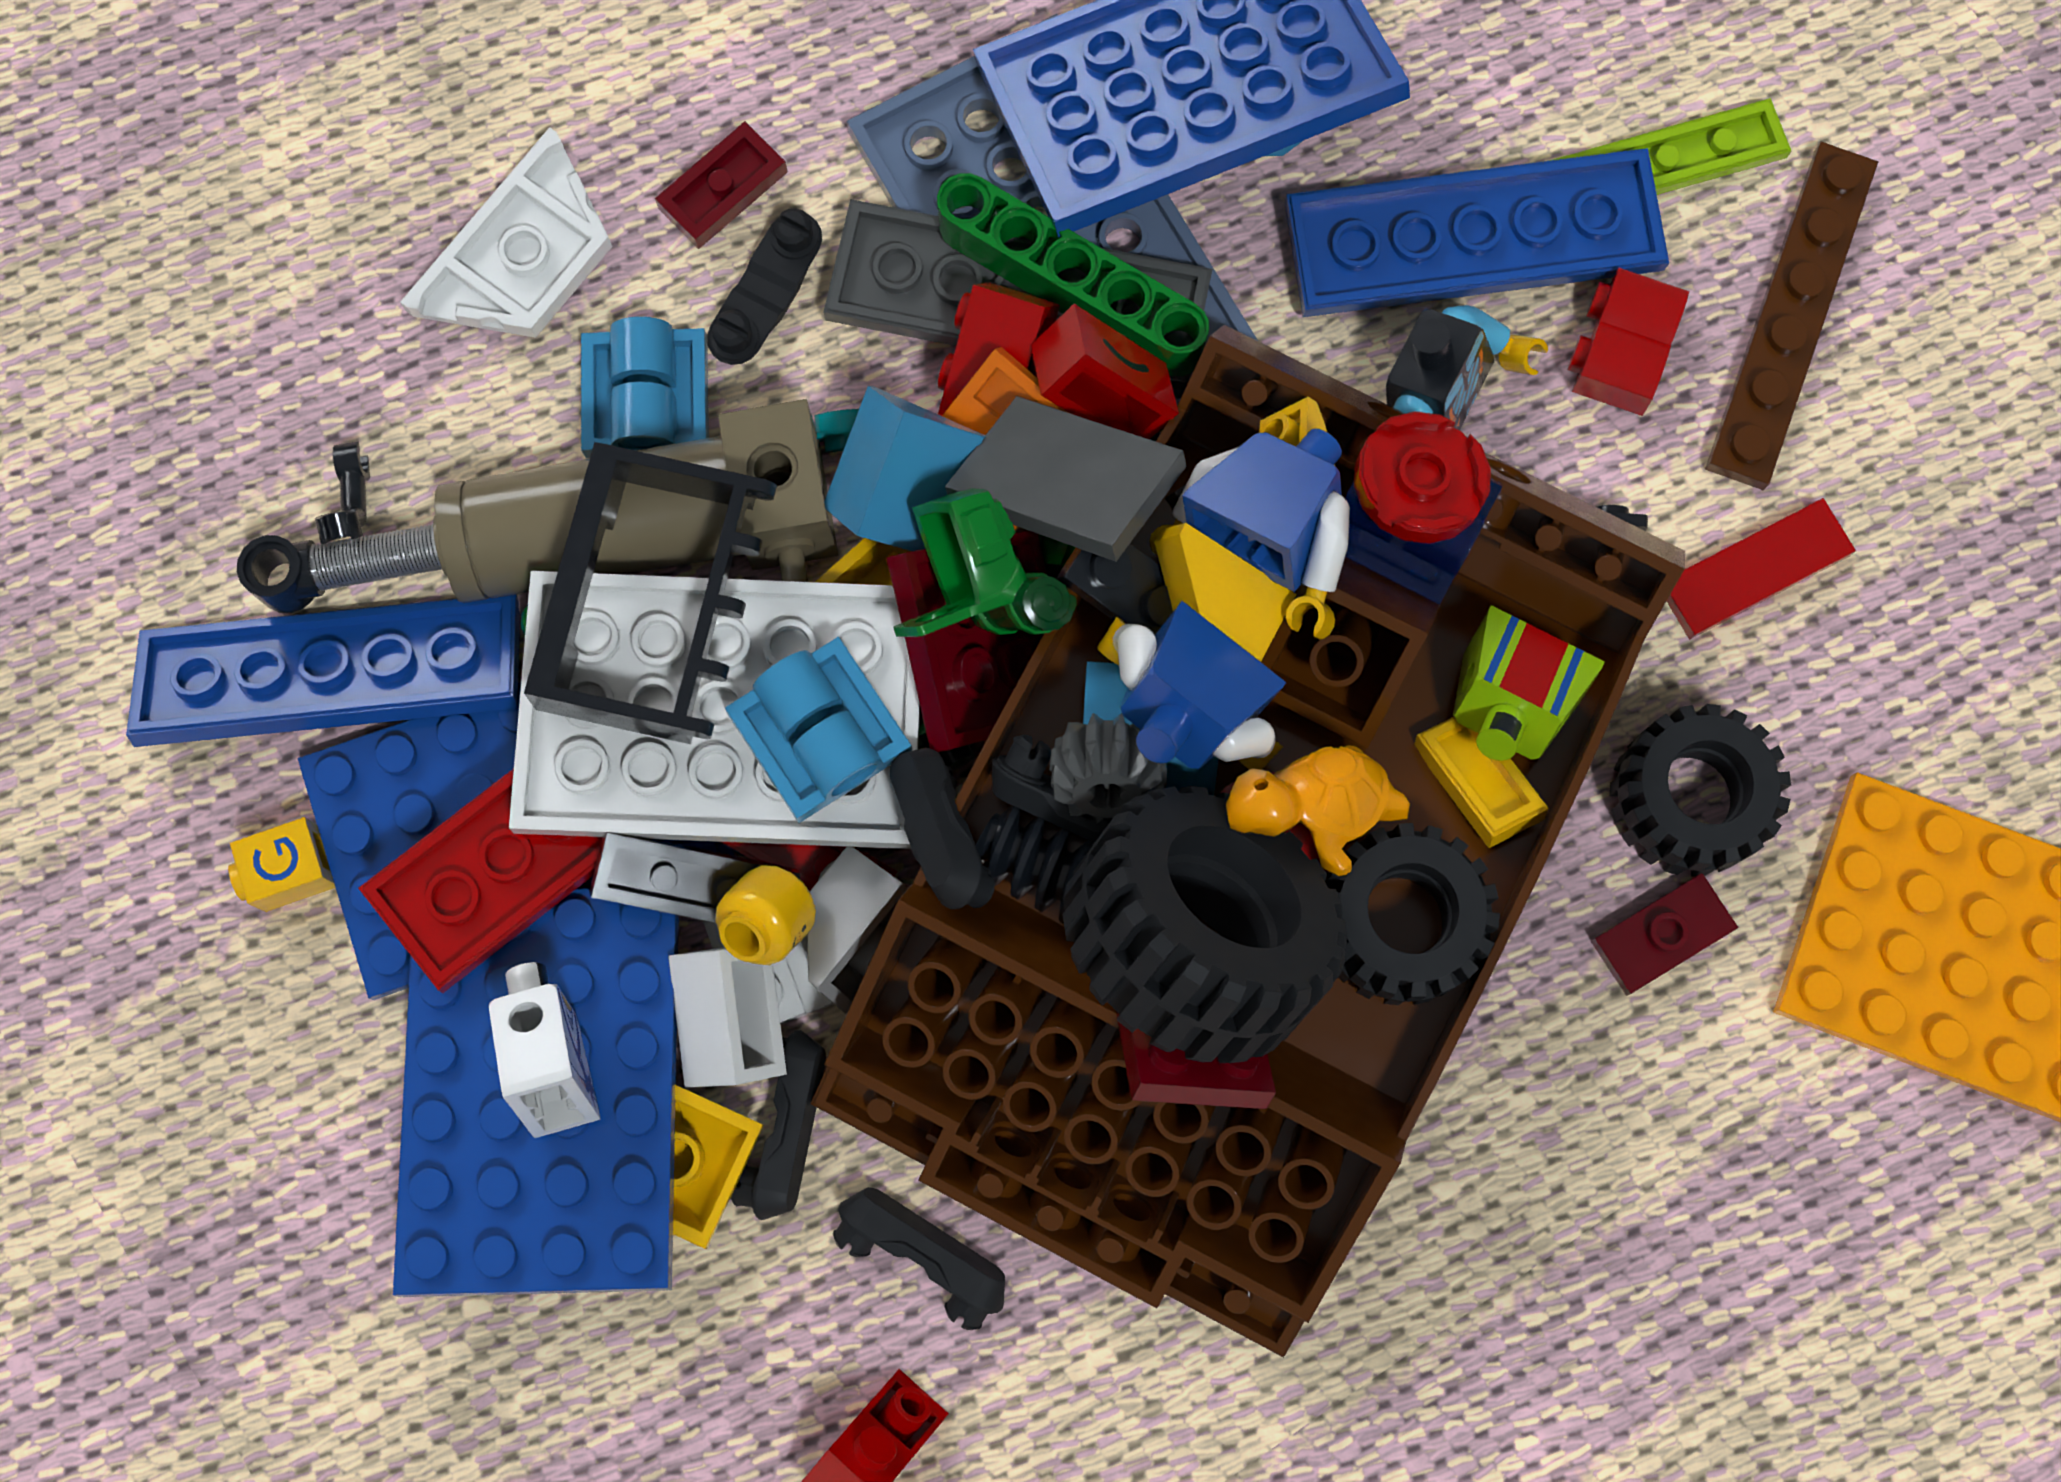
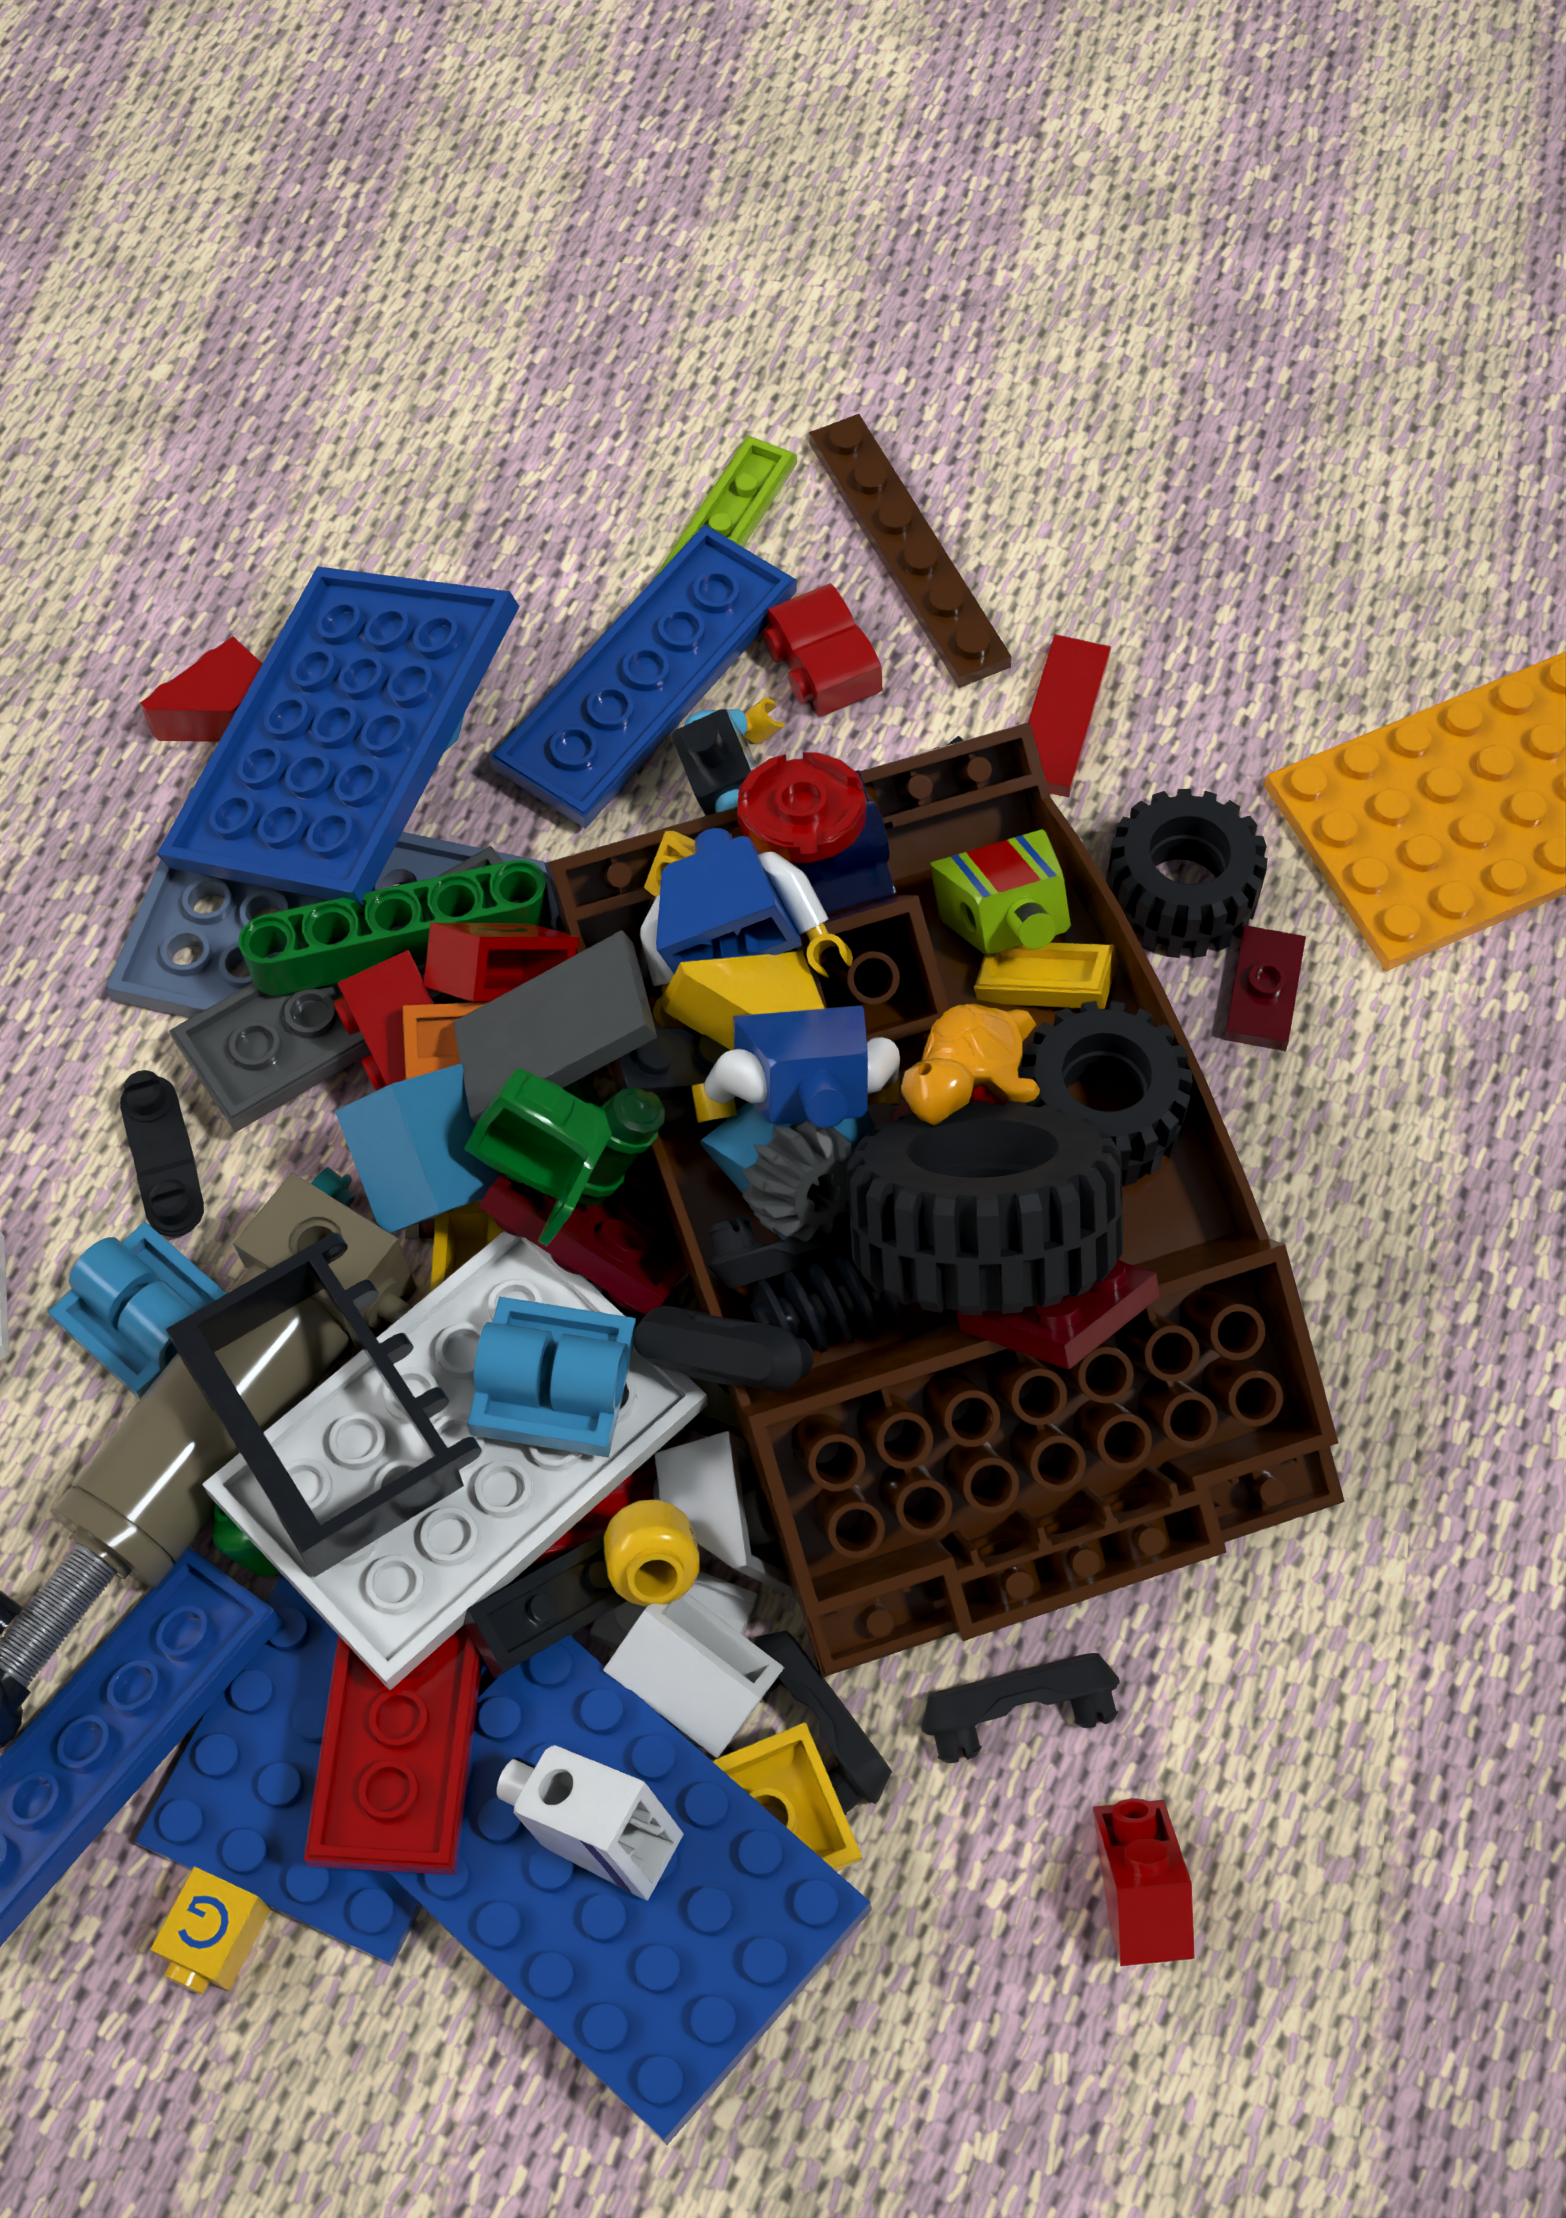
camera: 45 degrees left, 15 degrees down
(721, 185) = (50, 1117): dark red plate -> none

